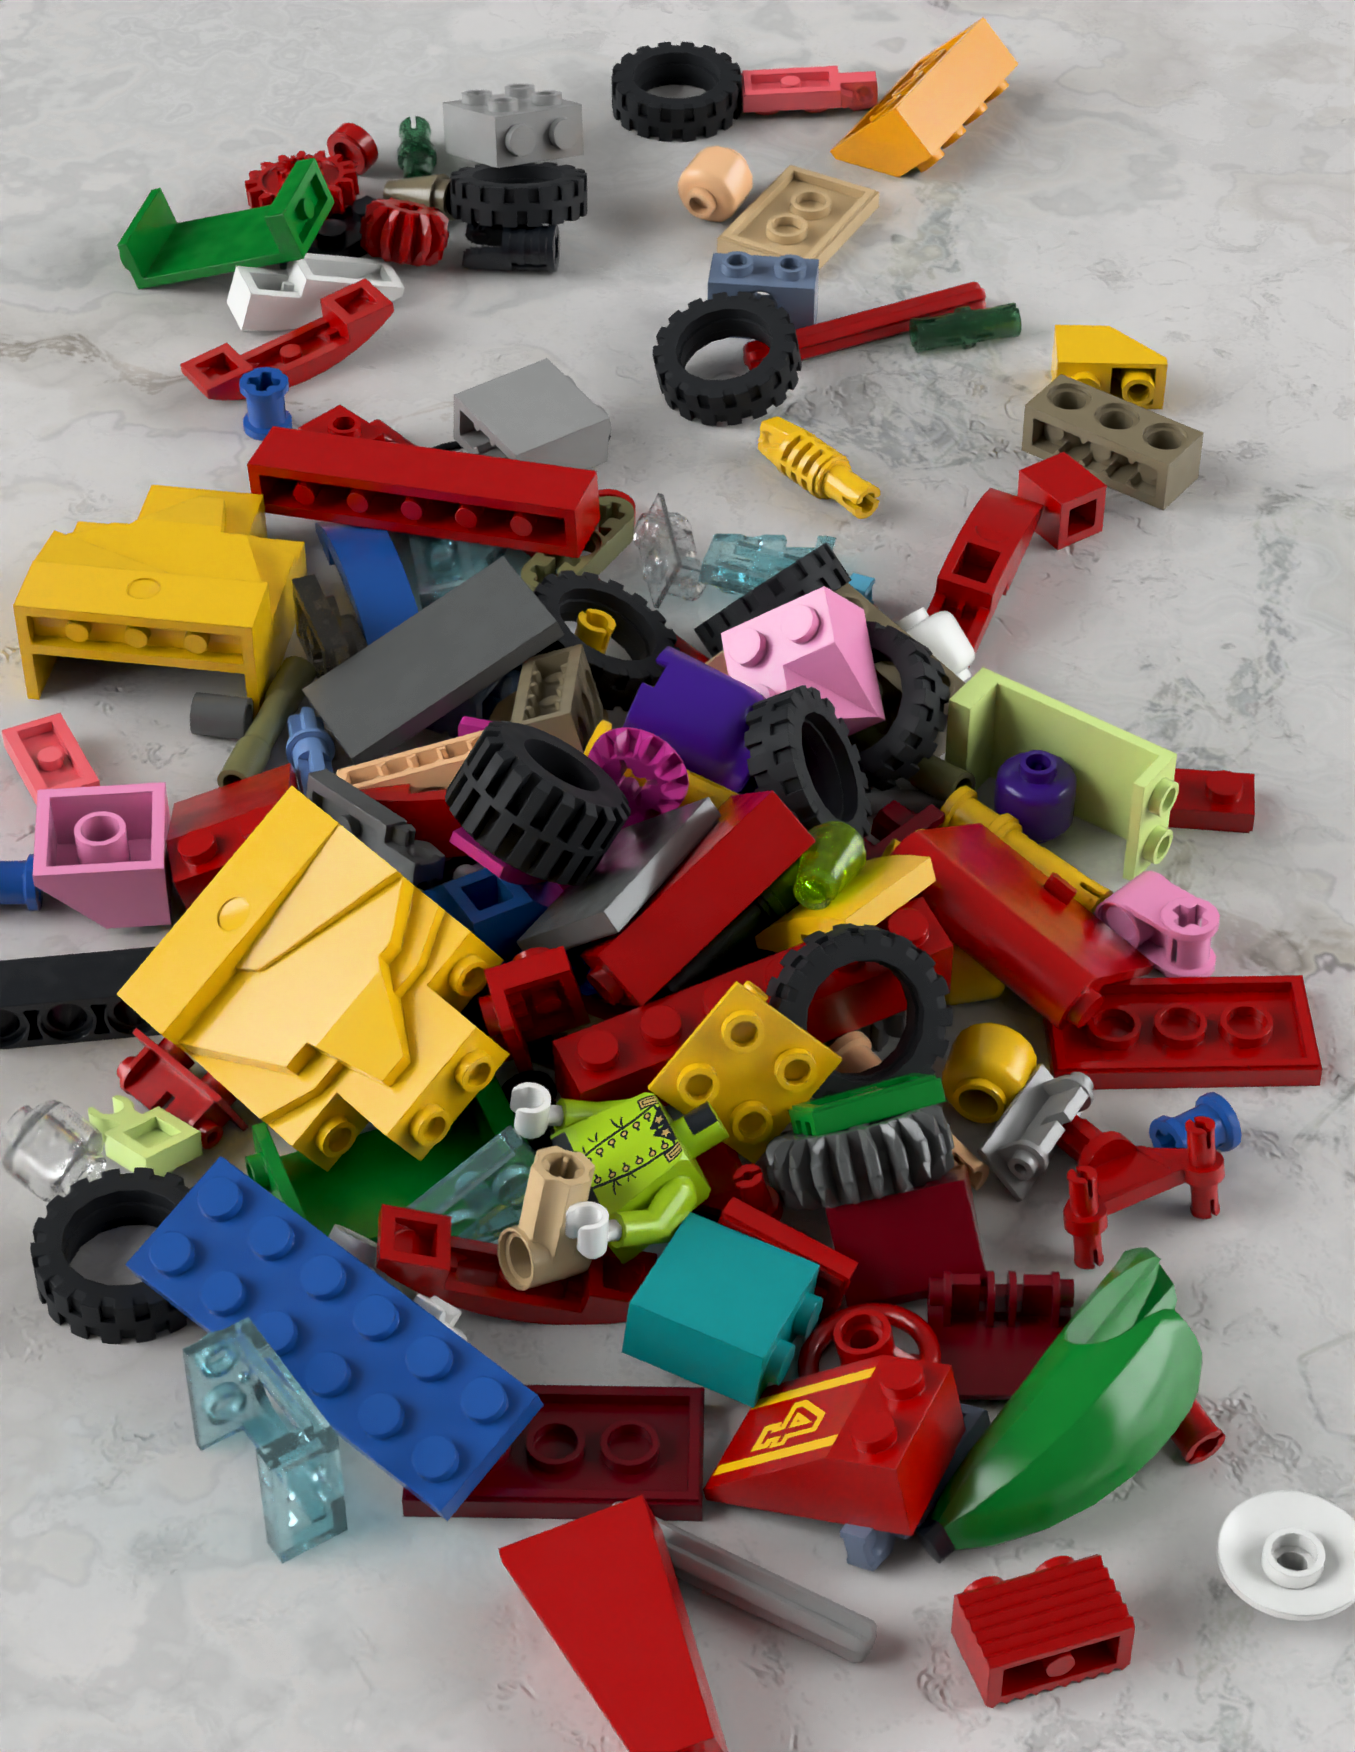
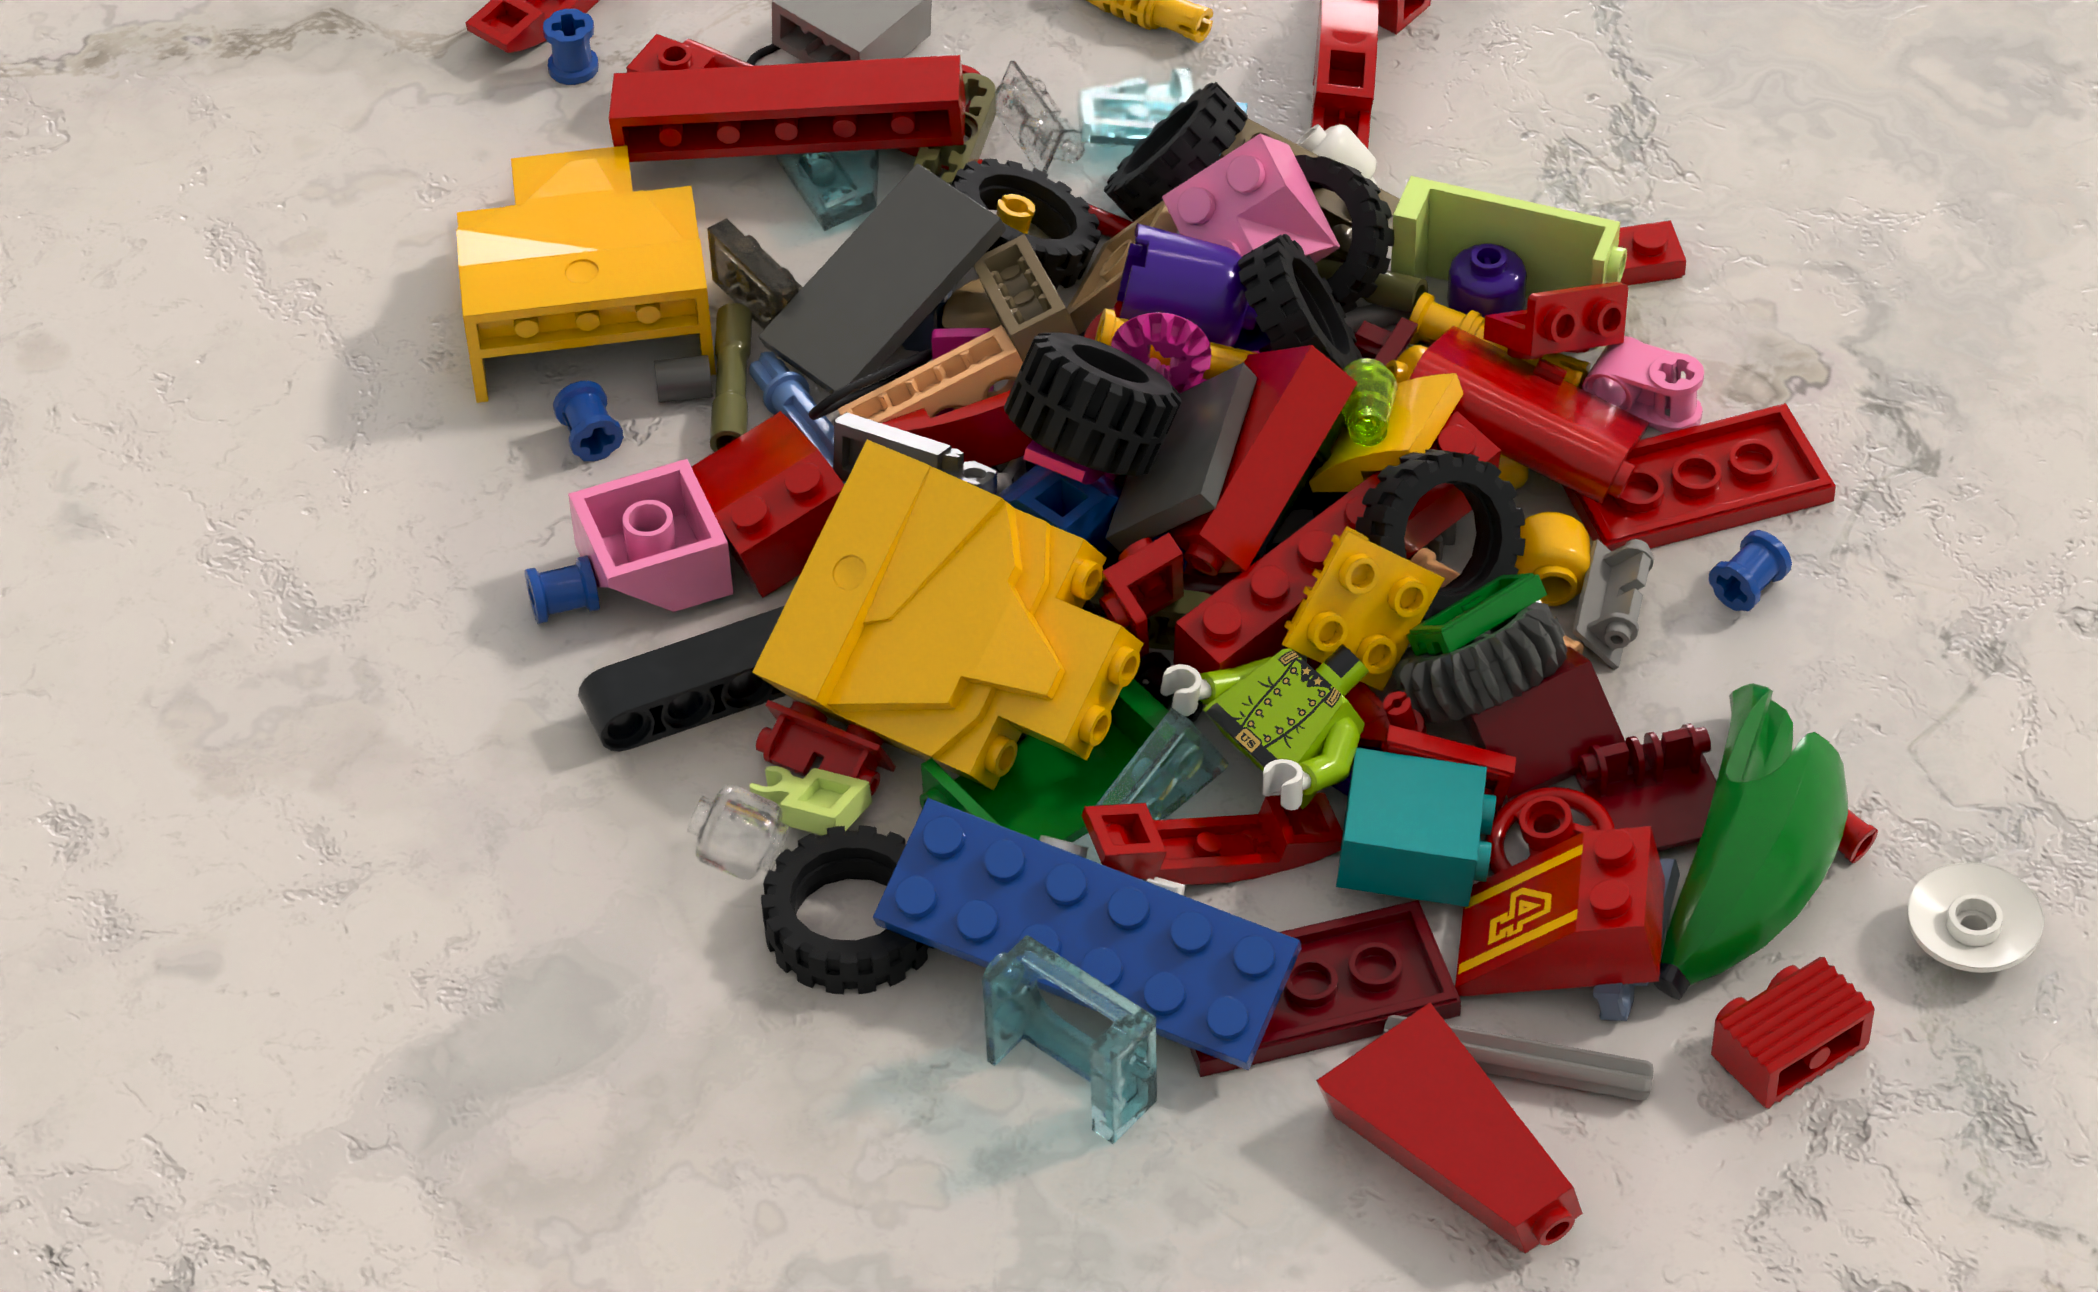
camera: 15 degrees left, 5 degrees up
(48, 755) = (542, 463): coral hinge -> none
(112, 724) = (584, 412): none -> blue bush
(306, 763) = (840, 398): none -> black piece
(370, 576) = (766, 208): blue slope -> none
(538, 1247) = (1235, 802): tan piece -> none
(1087, 839) = (1562, 321): none -> red bracket
(1119, 1174) = (1706, 624): red axle -> none

